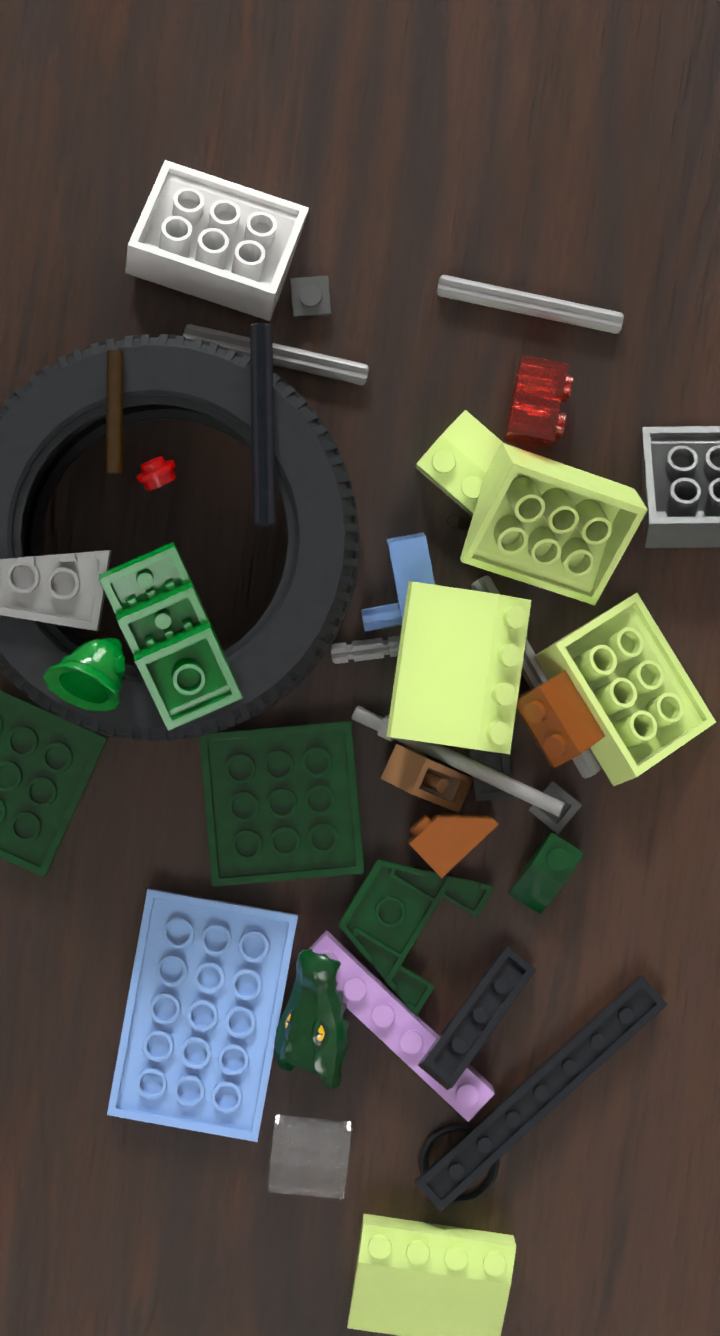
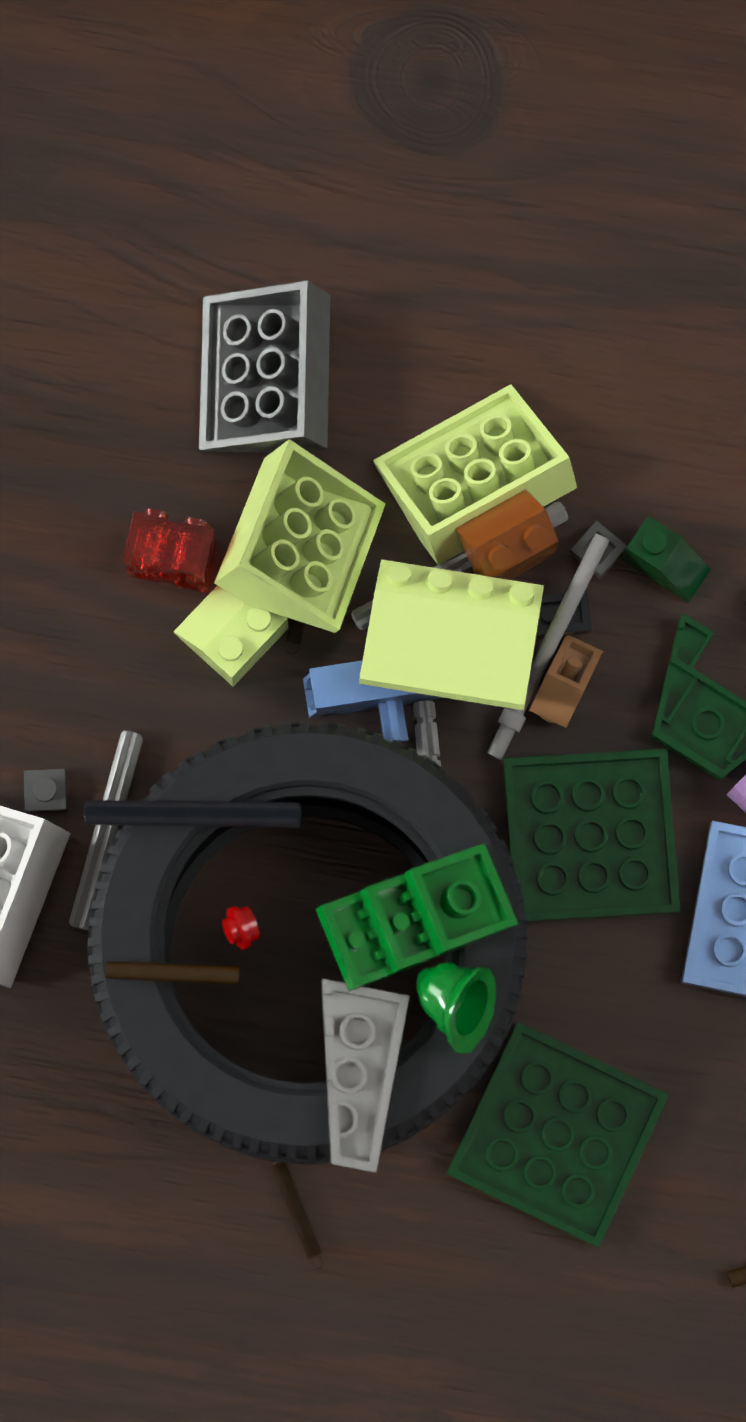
camera: 90 degrees left, 10 degrees down
(448, 837) = (630, 655): dark orange slope -> none
(530, 304) = (64, 561): light grey axle -> none

